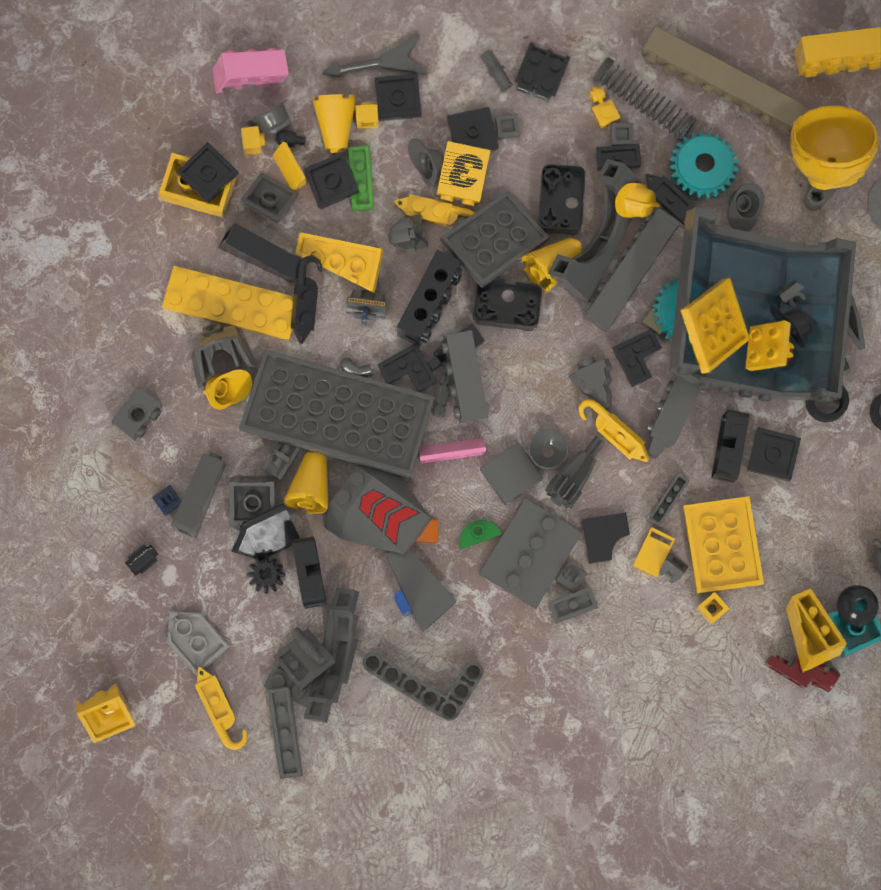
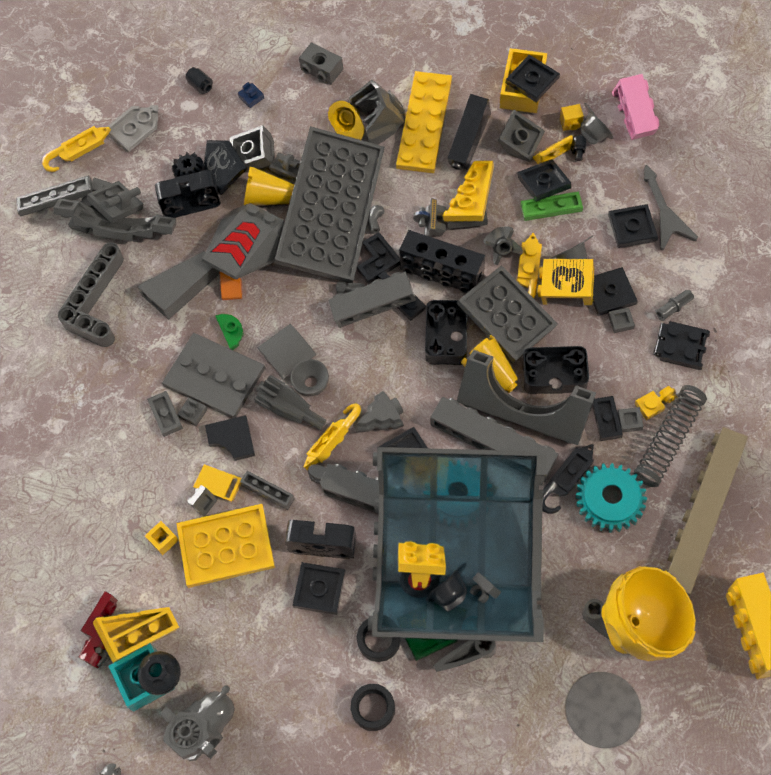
camera: 95 degrees right, 15 degrees down
(105, 714) = (71, 66): yellow brick -> none
(198, 495) = (251, 110): dark grey slope -> none
(304, 300) = (432, 169): black plate -> none
(334, 120) = (600, 175): yellow cone -> none
(367, 115) = (609, 200): yellow plate -> none
(402, 603) = (159, 263): blue tile -> none
(452, 450) = (306, 300): bright pink slope -> none
(635, 201) = (560, 427): yellow piece -> none
(715, 325) = (430, 492): yellow plate -> none
(745, 206) = (570, 538): dark grey piece -> none

